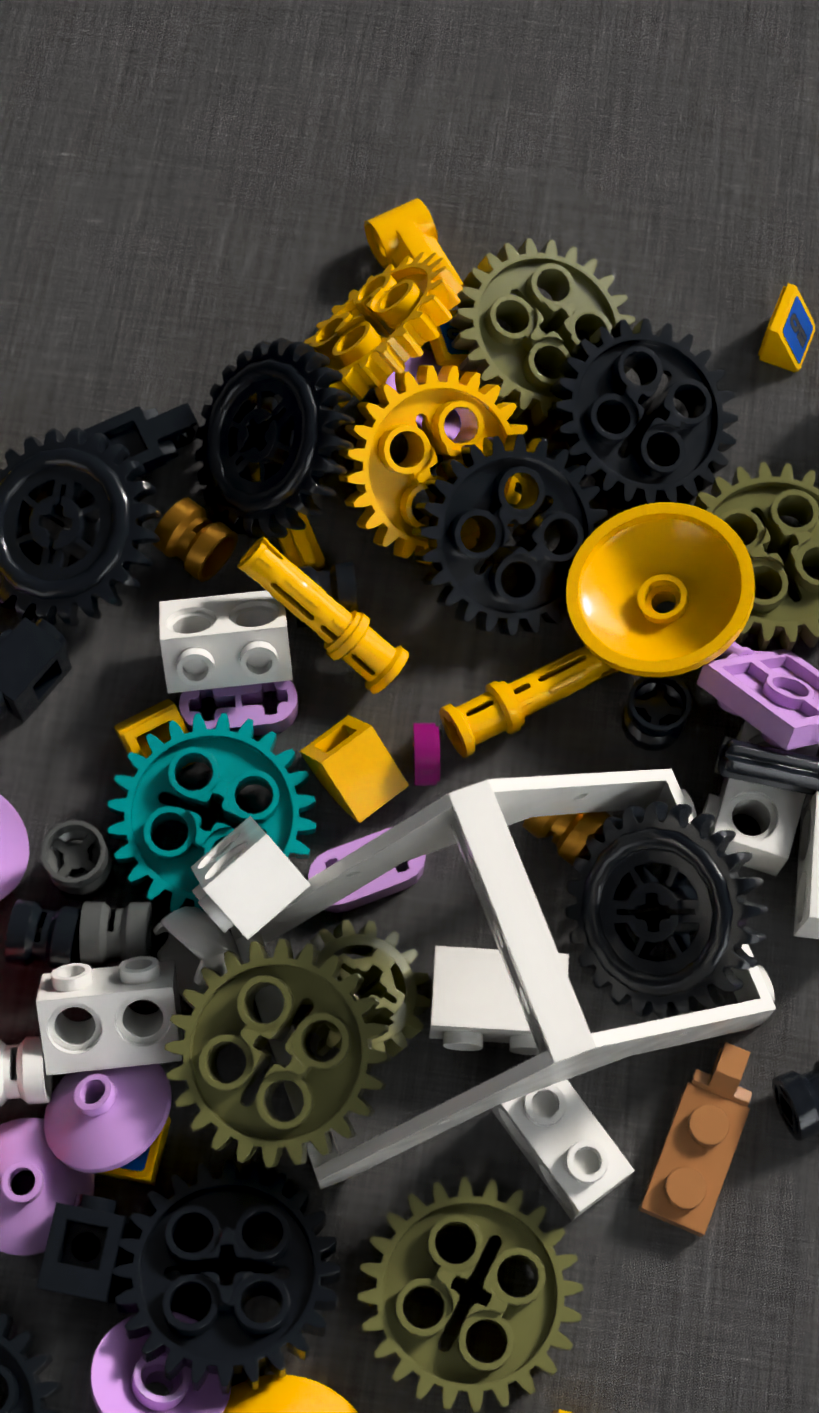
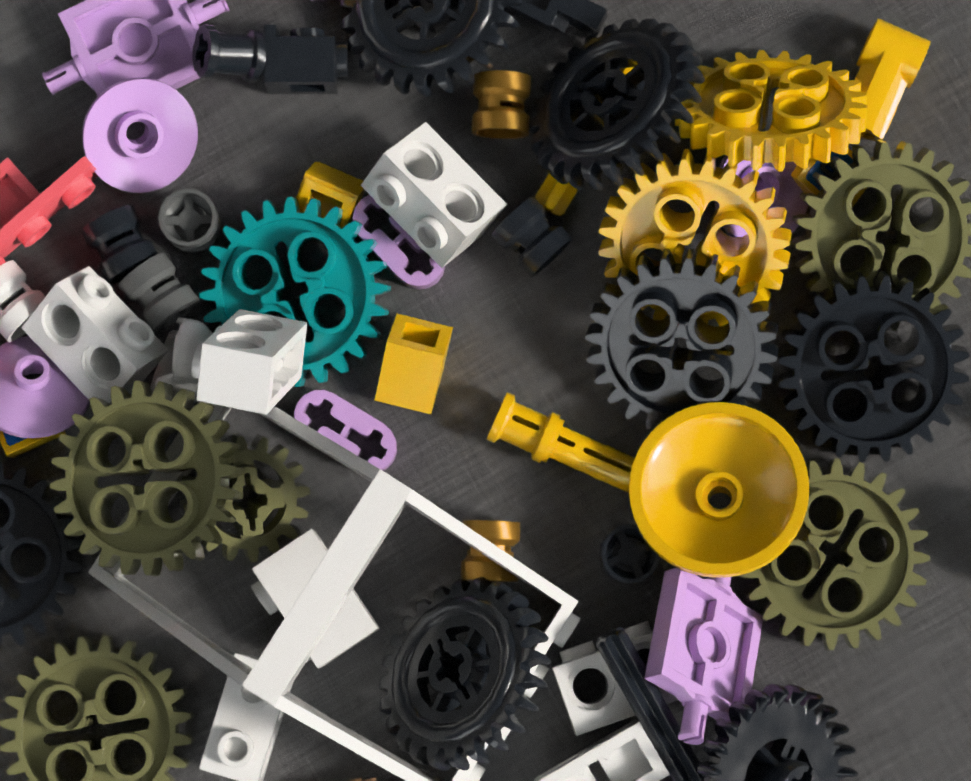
camera: 55 degrees right, 15 degrees up
(344, 632) = (505, 277): yellow pin -> none
(426, 754) = (463, 408): magenta tile -> none

